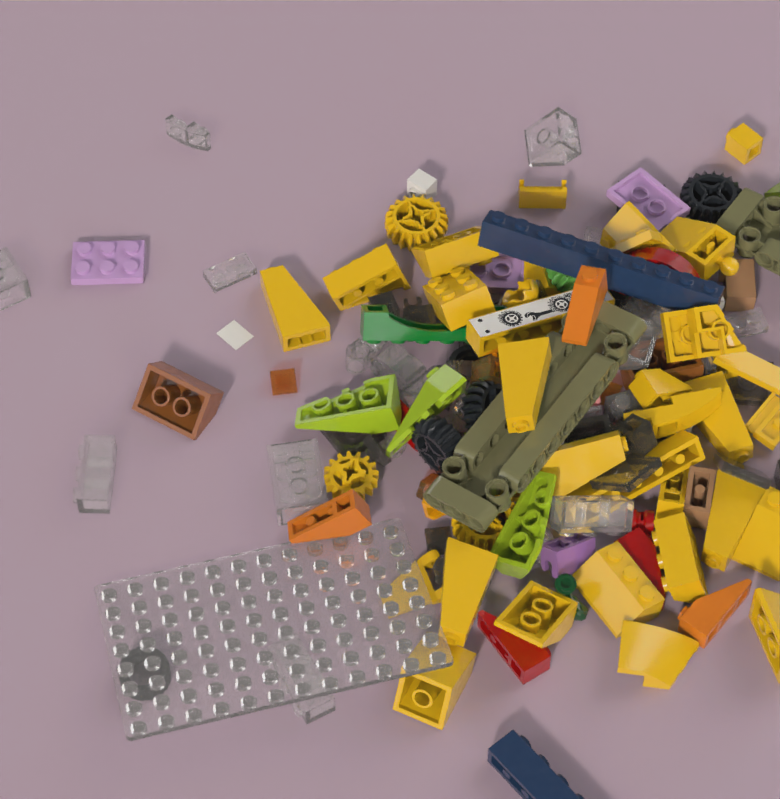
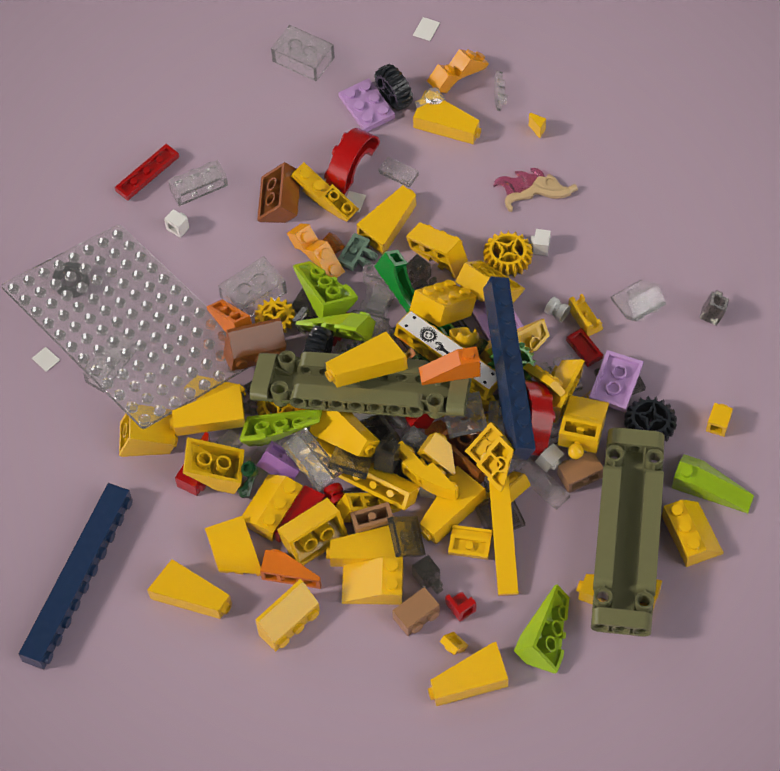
camera: 65 degrees right, 5 degrees up
(37, 523) = (146, 172): none -> red plate
(41, 162) = (426, 28): none -> white sticker
(113, 218) = (393, 87): none -> black gear
(132, 156) = (461, 65): none -> light orange arch
(141, 521) = (176, 223): none -> white plate
(159, 189) = (431, 97): none -> clear rock
(185, 303) = (347, 157): none -> red brick
(189, 197) = (447, 121): none -> yellow slope
(215, 354) = (324, 195): none -> yellow slope
(241, 756) = (45, 359): none -> white sticker
(260, 121) = (537, 124): none -> yellow slope
(294, 391) = (317, 250): none -> light orange arch
(313, 362) = (354, 252): none -> sand green hinge
(334, 165) = (528, 185): none -> piece
(392, 508) = (246, 342): none -> dark orange slope
(498, 597) = (230, 438): none -> clear plate
(521, 210) = (557, 309): none -> white wheel
(579, 214) = (584, 347): none -> red tile
(607, 82) = (714, 307): none -> clear smoke brick
(686, 726) = (189, 591): none -> yellow slope

